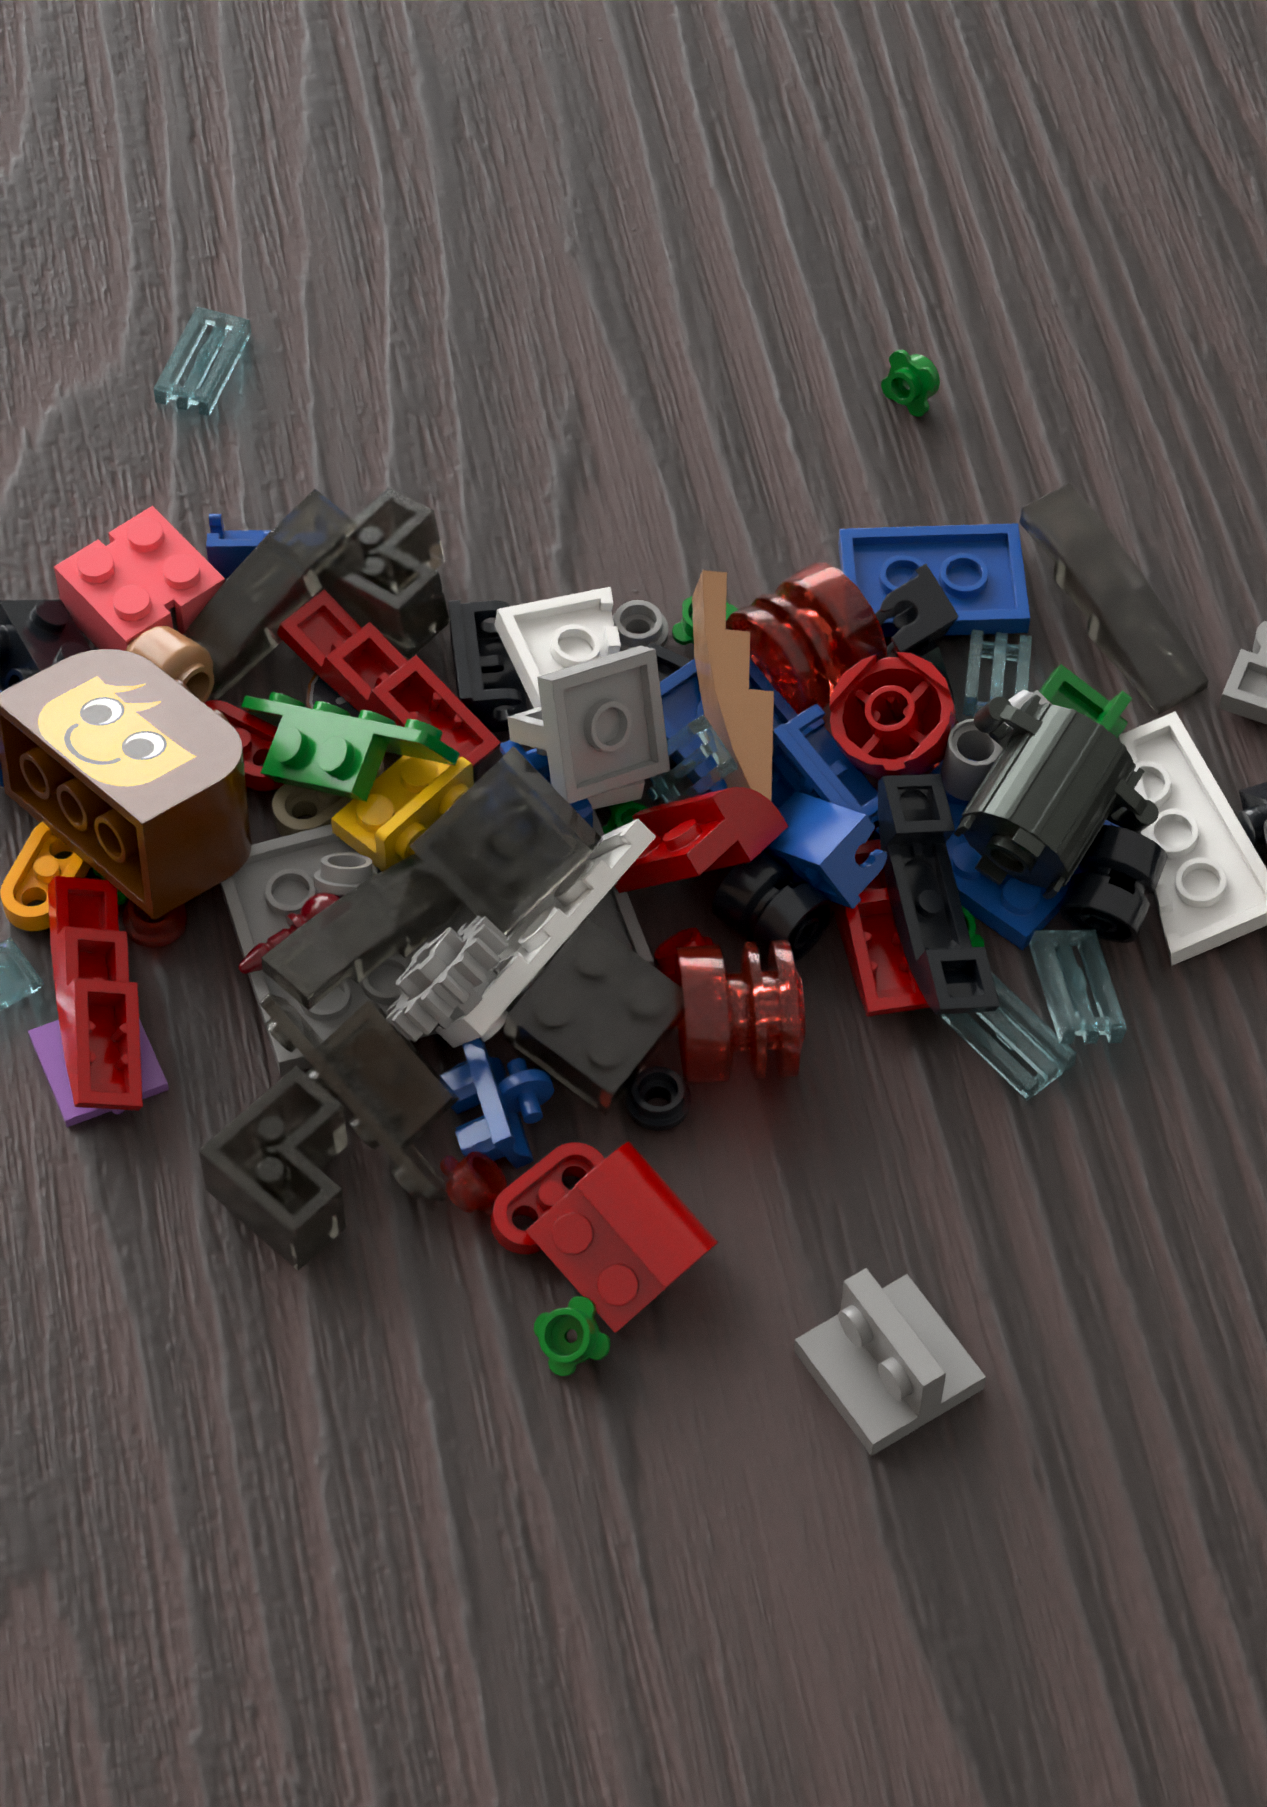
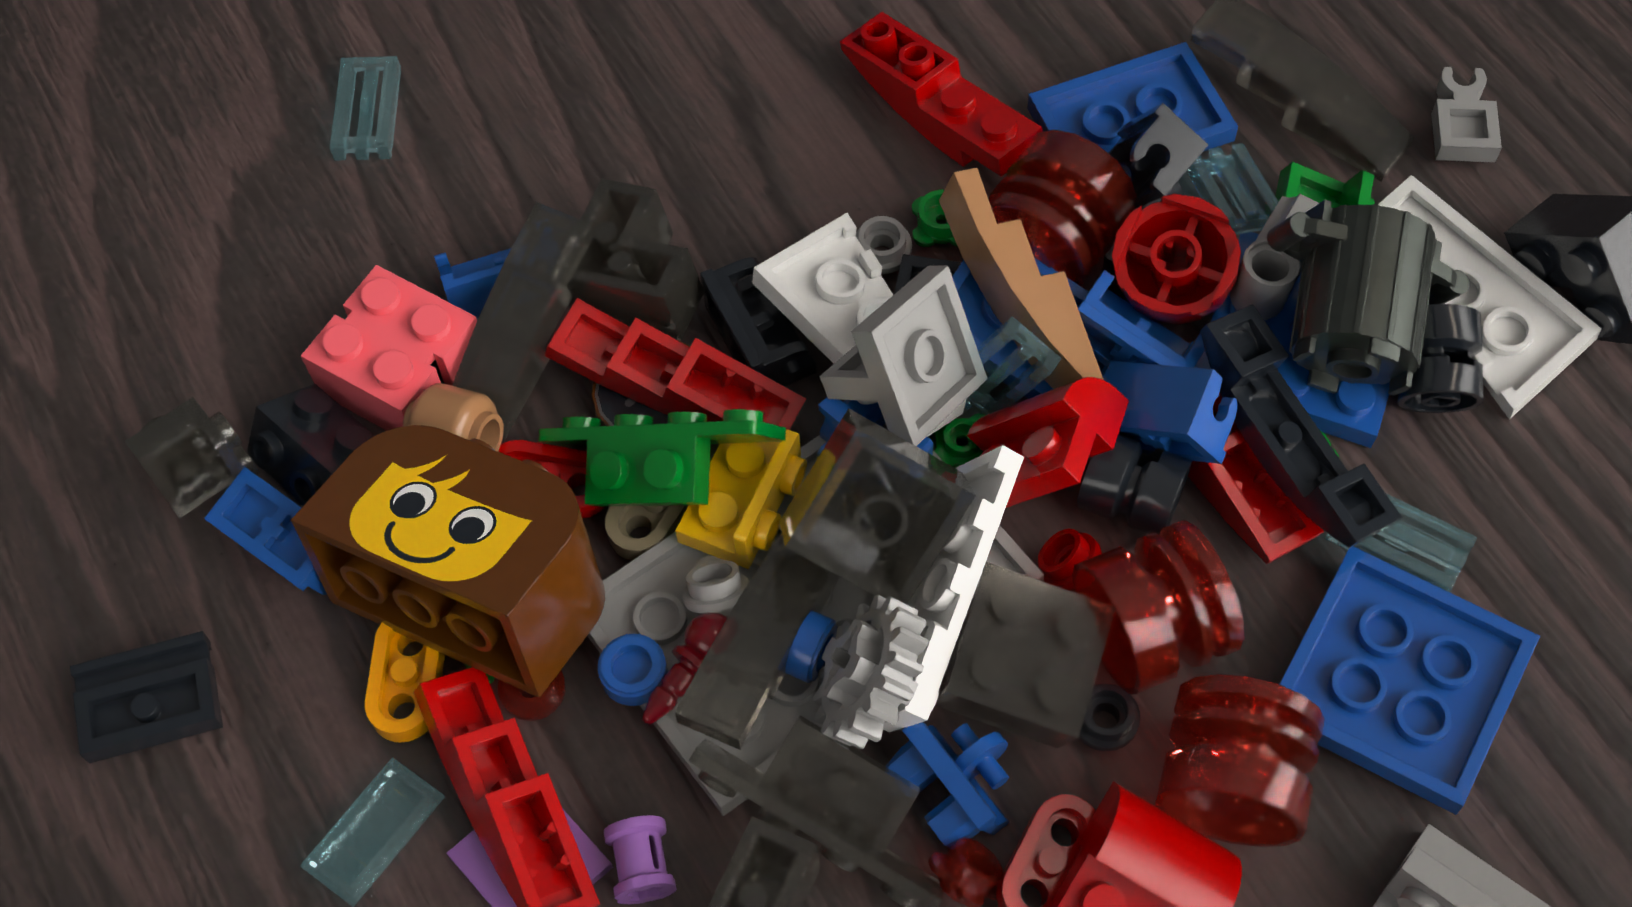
camera: 15 degrees left, 5 degrees up
(192, 1084) = (639, 859): none -> medium lavender bush
(244, 922) = (631, 669): none -> blue tile
(403, 945) = (809, 645): none -> blue tile
(747, 499) = (931, 95): none -> red slope
(750, 1159) = (1241, 760): none -> clear red wheel
(944, 1148) = (1408, 677): none -> blue plate
(1069, 1002) = (1437, 473): clear light blue tile -> none

